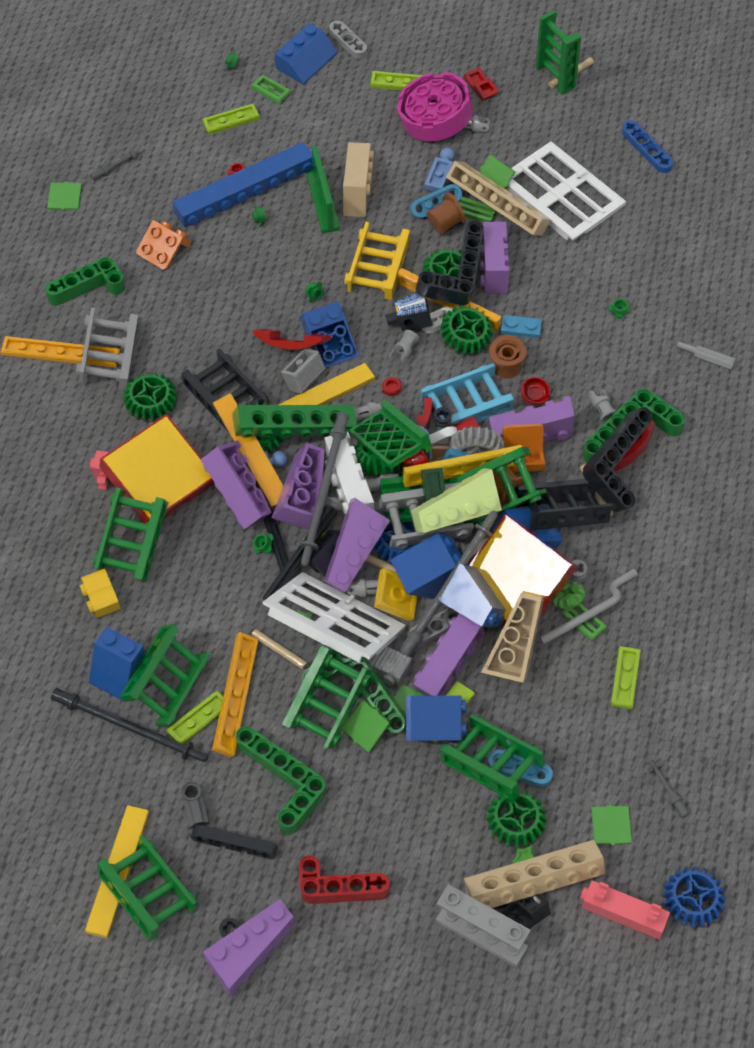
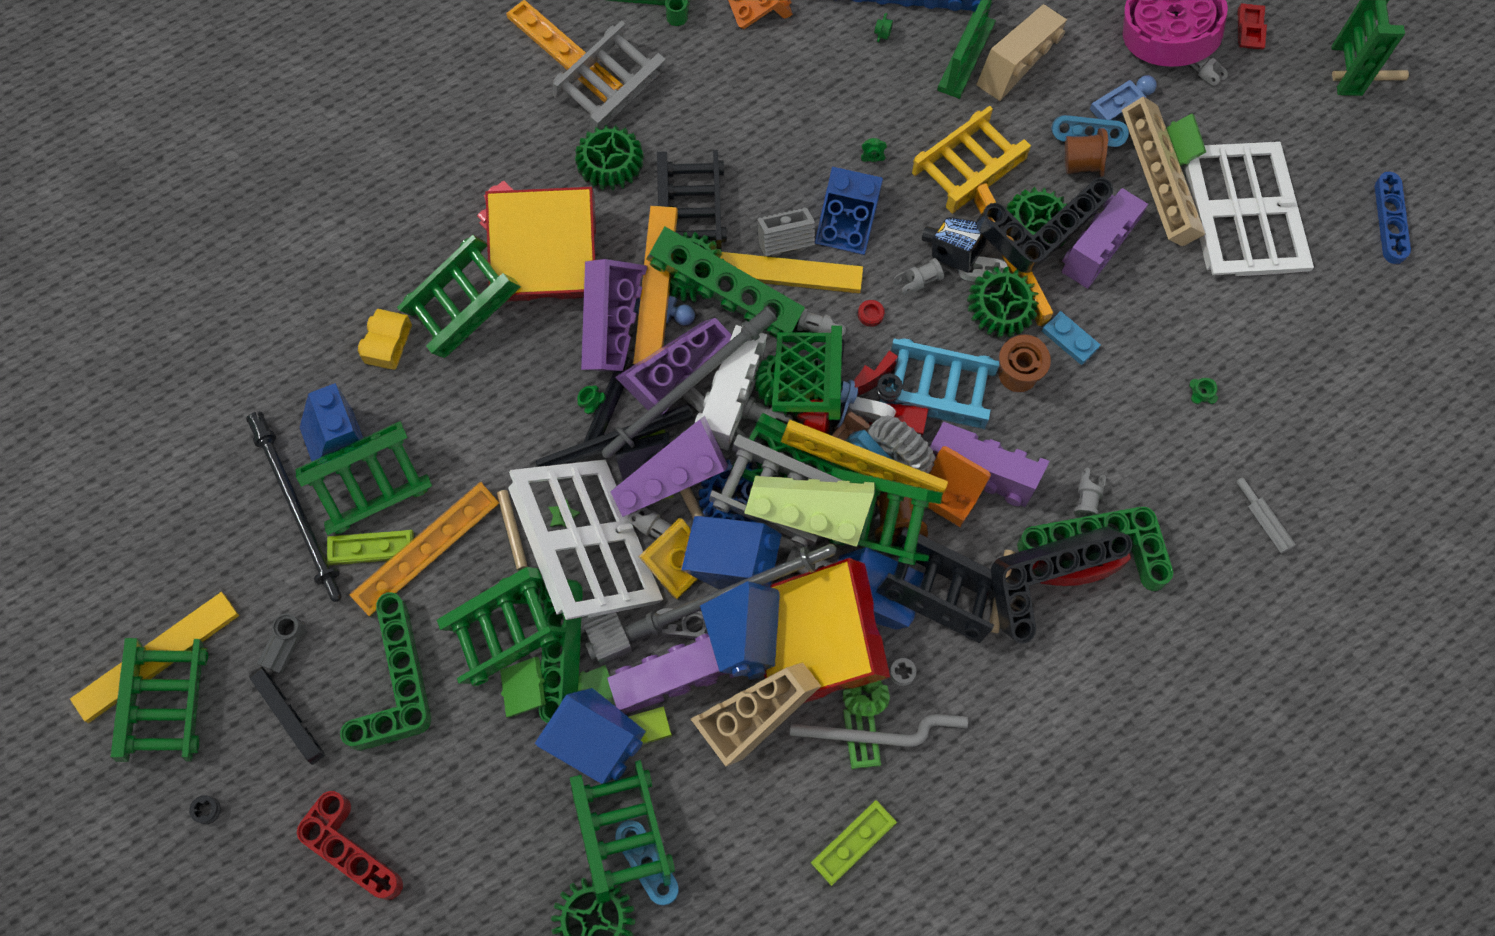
camera: 35 degrees right, 10 degrees up
(248, 945) = (192, 847): medium lavender wedge -> none
(273, 338) = (786, 176): red slope -> none
(432, 483) = (804, 460): dark green tile -> none
(477, 208) = (1125, 161): bright green tile -> none
(535, 391) = (1027, 422): red hair -> none

